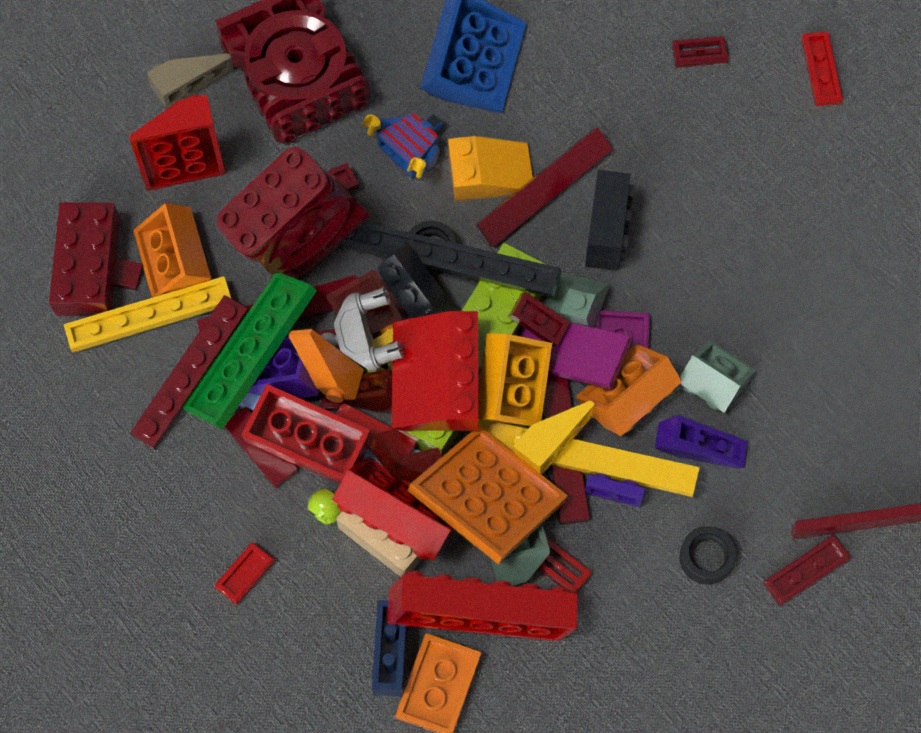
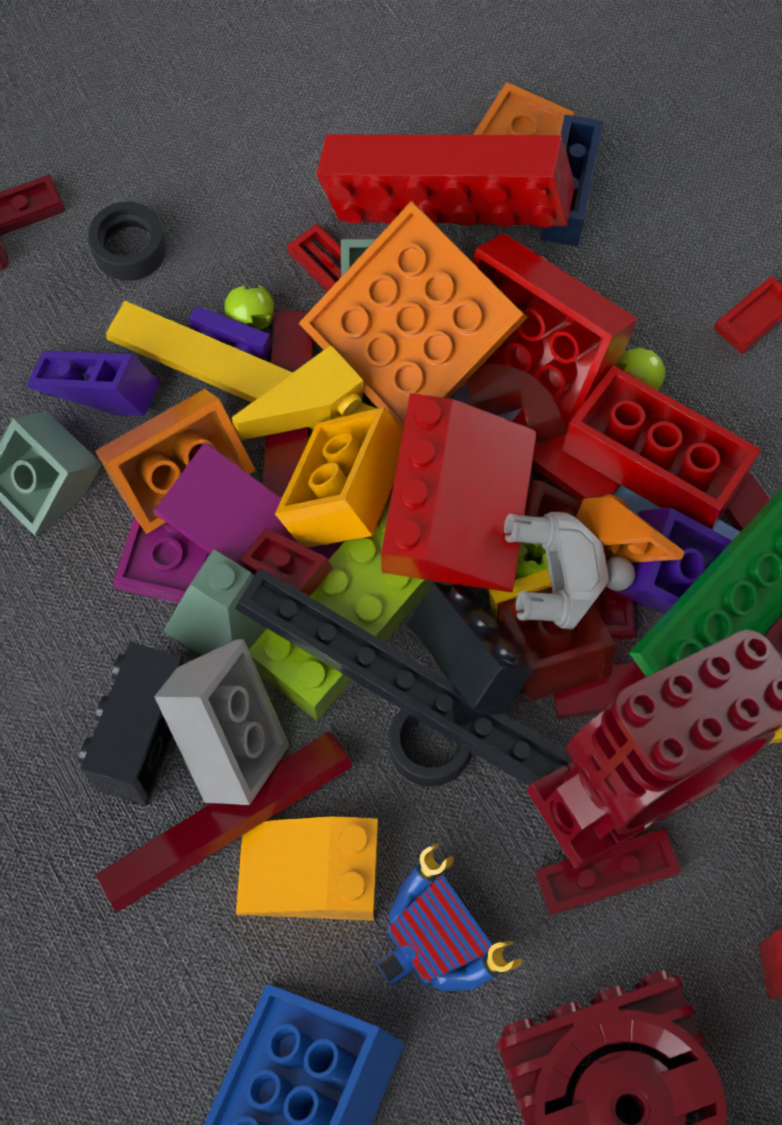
camera: 170 degrees left, 0 degrees up
(554, 220) = (223, 724): none -> light grey slope
(606, 511) = (250, 306): none -> lime piece

